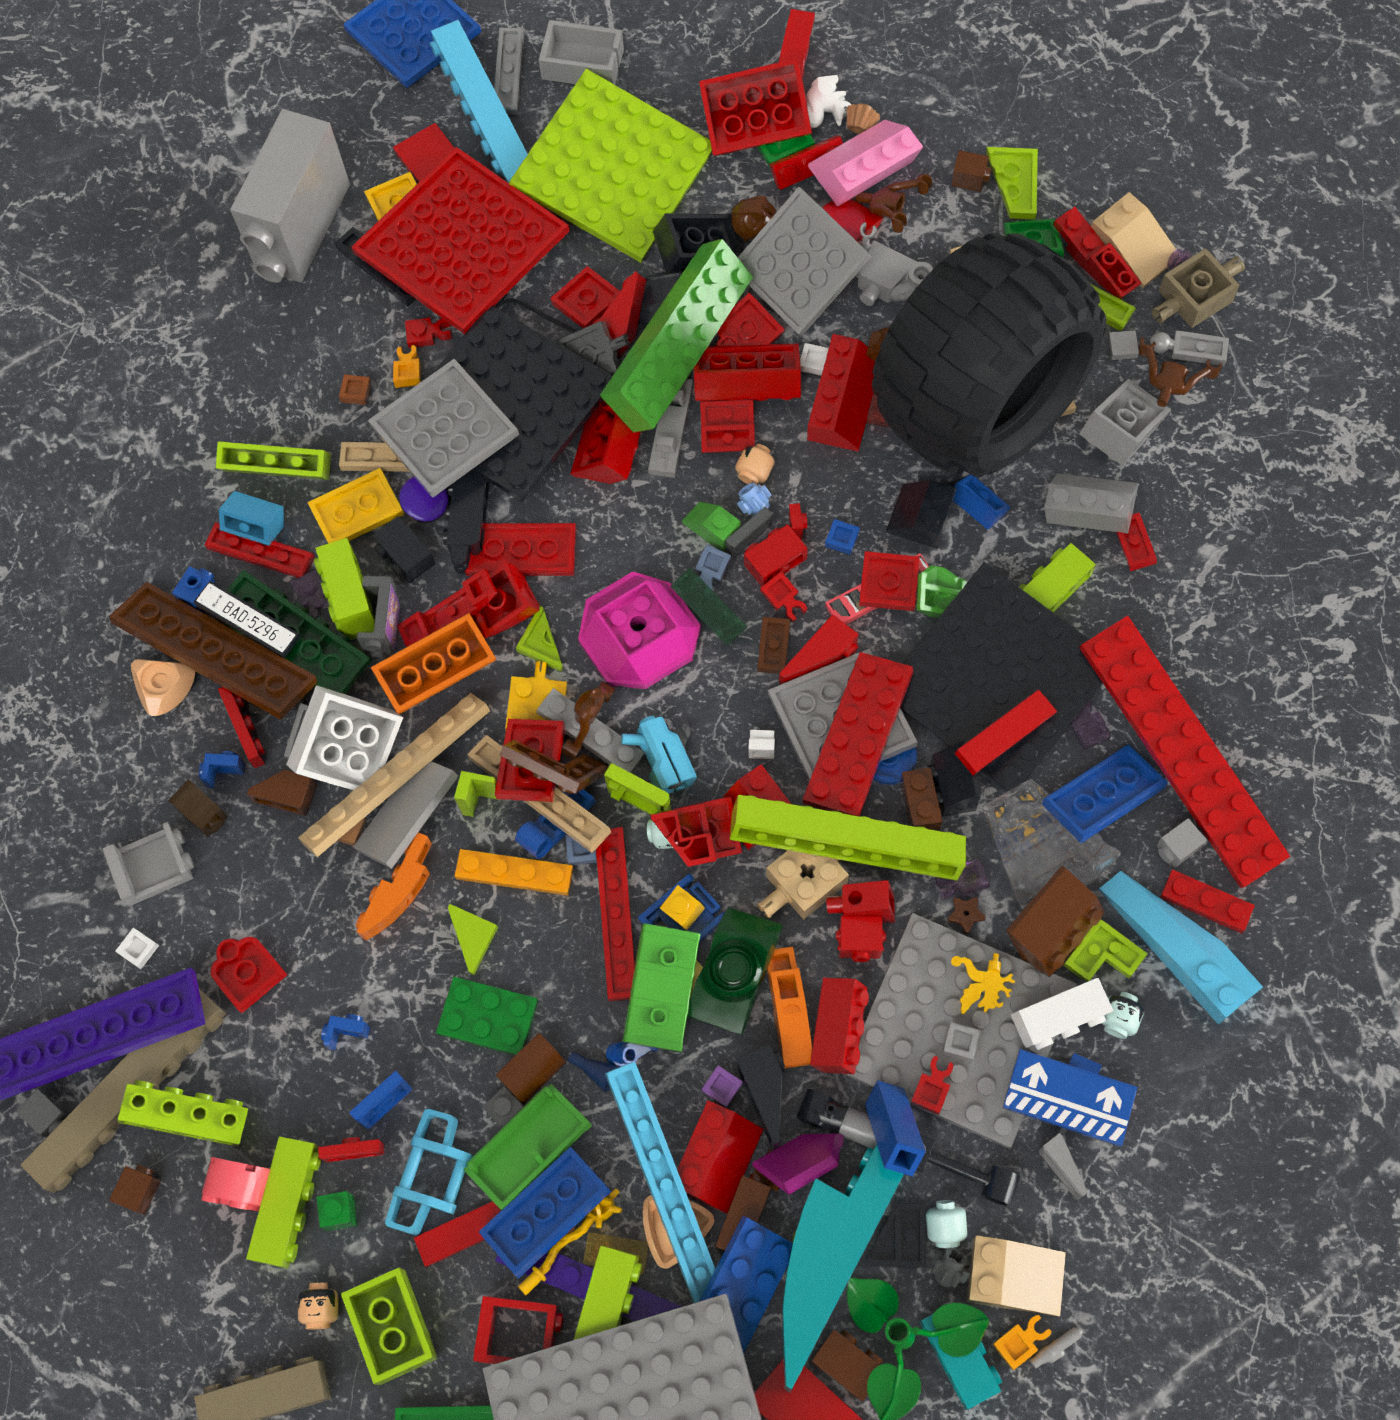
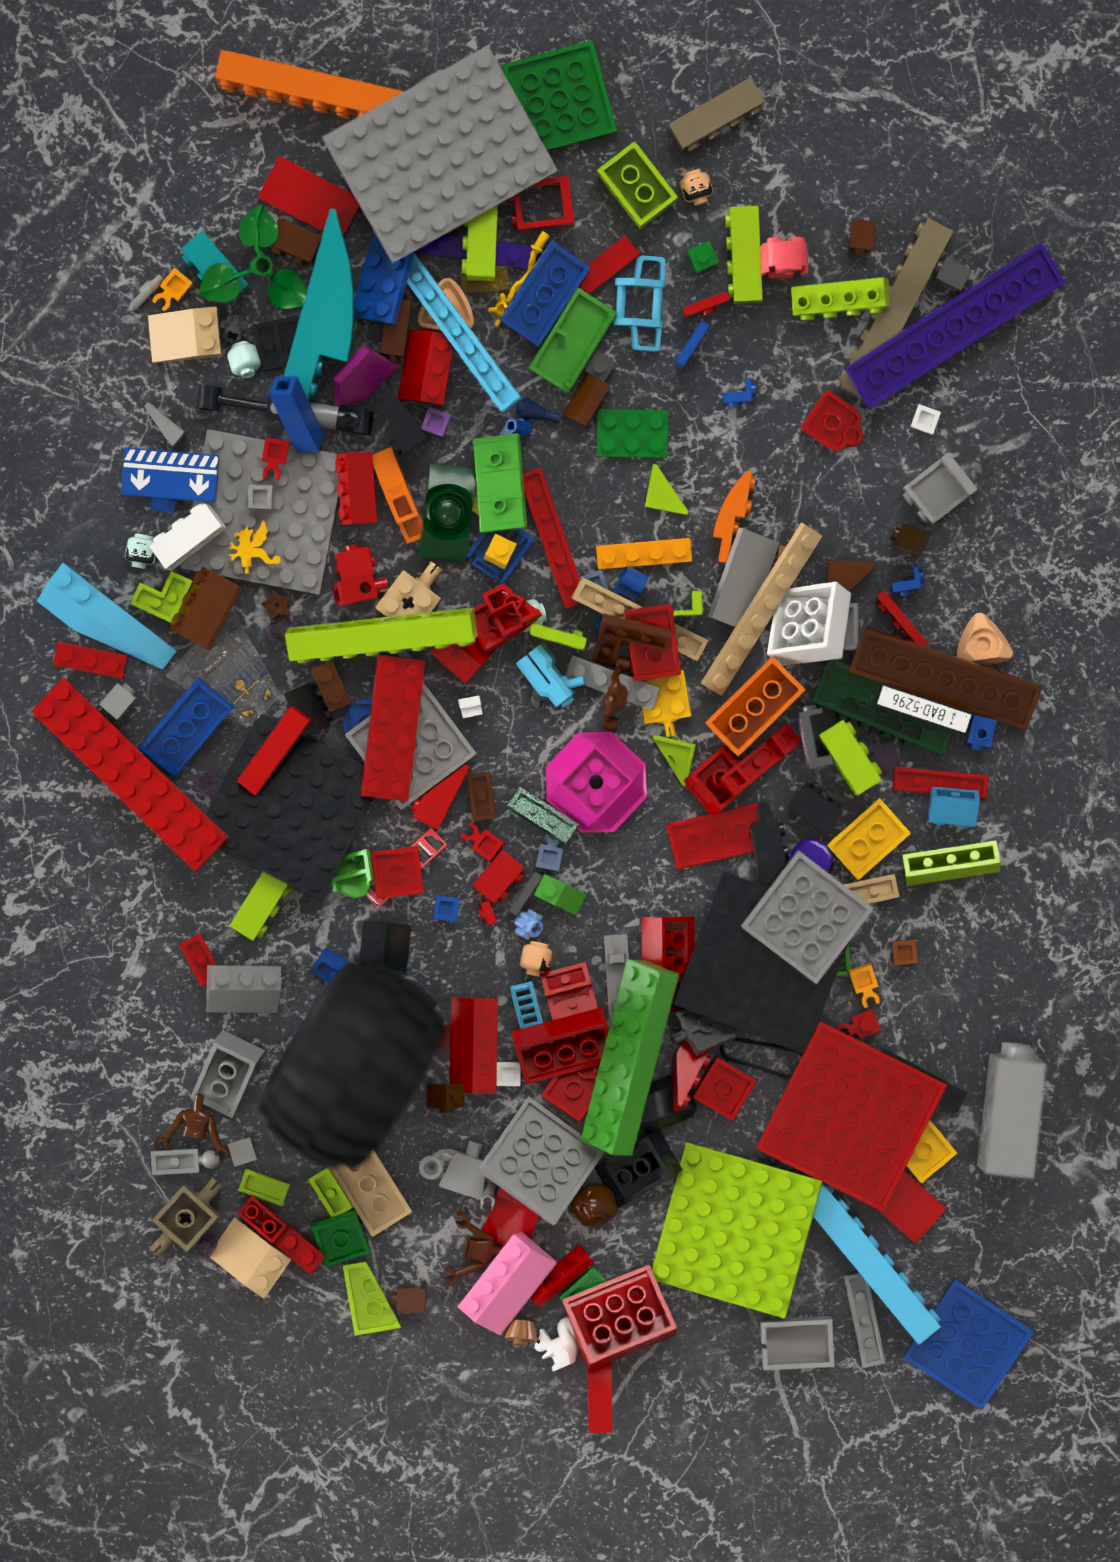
camera: 160 degrees right, 20 degrees up
(777, 441) = (522, 987): none -> medium azure slope

